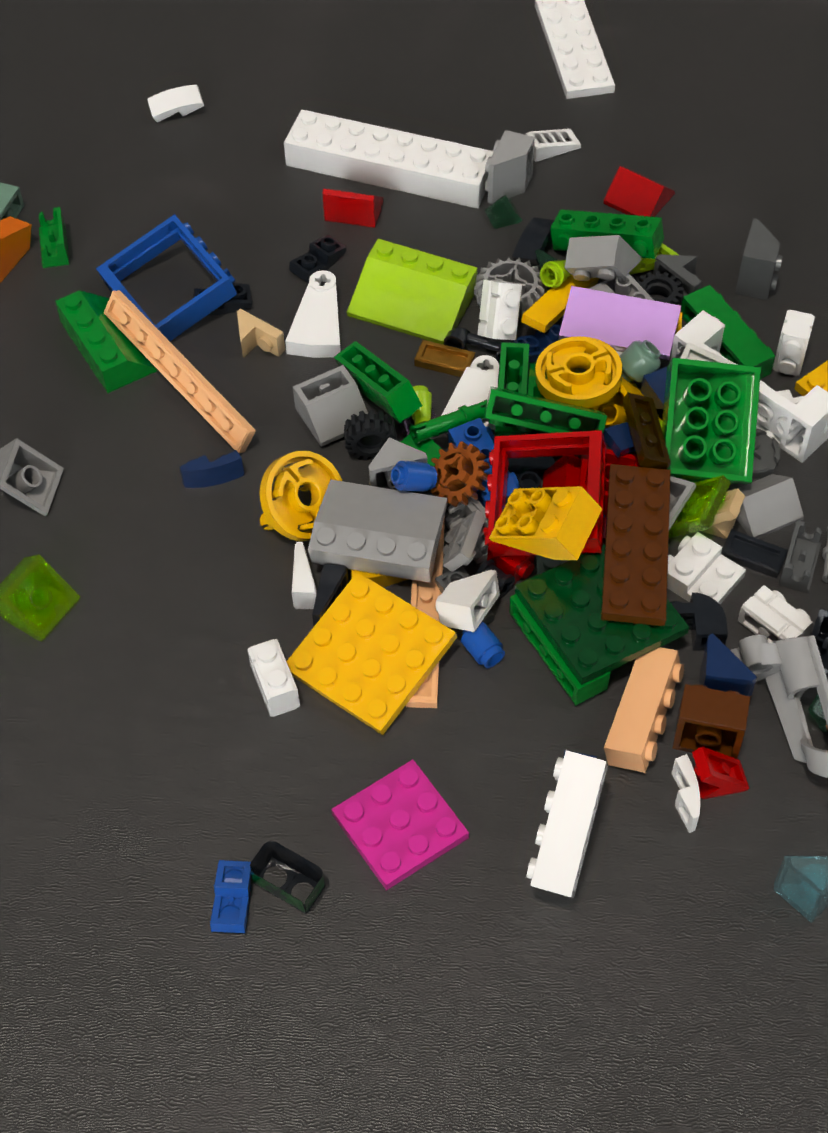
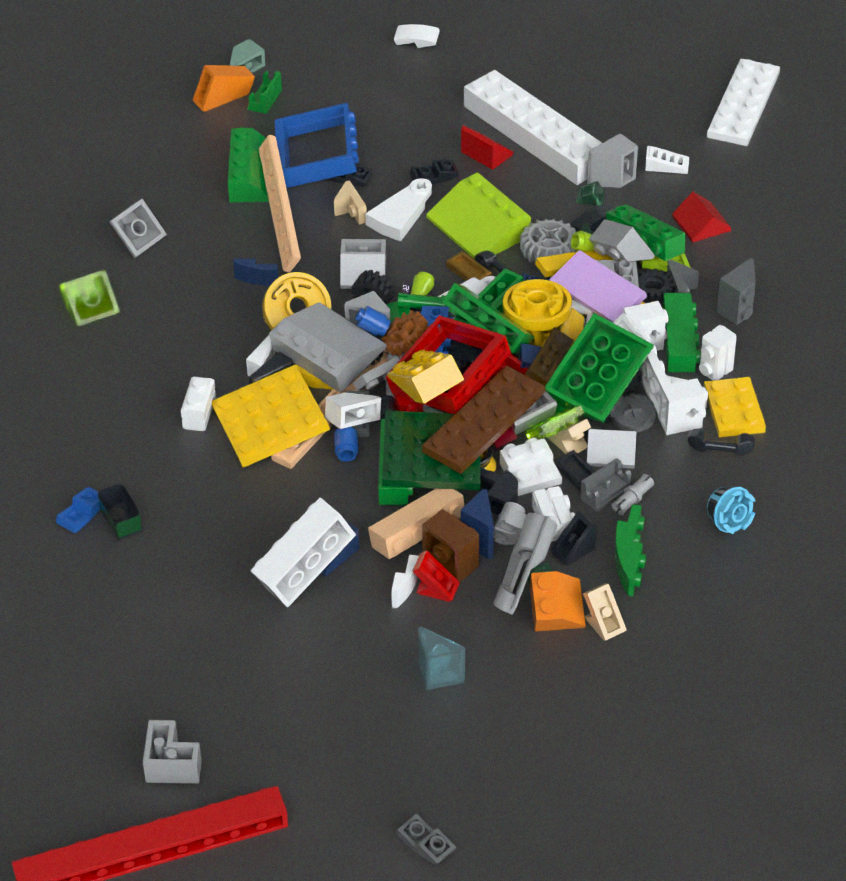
camera: 30 degrees right, 10 degrees down
(379, 381) = (400, 259): green brick -> none
(400, 824) = (212, 518): dark pink plate -> none
(499, 309) = (521, 248): white brick -> none
(639, 360) = (584, 312): sand green head -> none

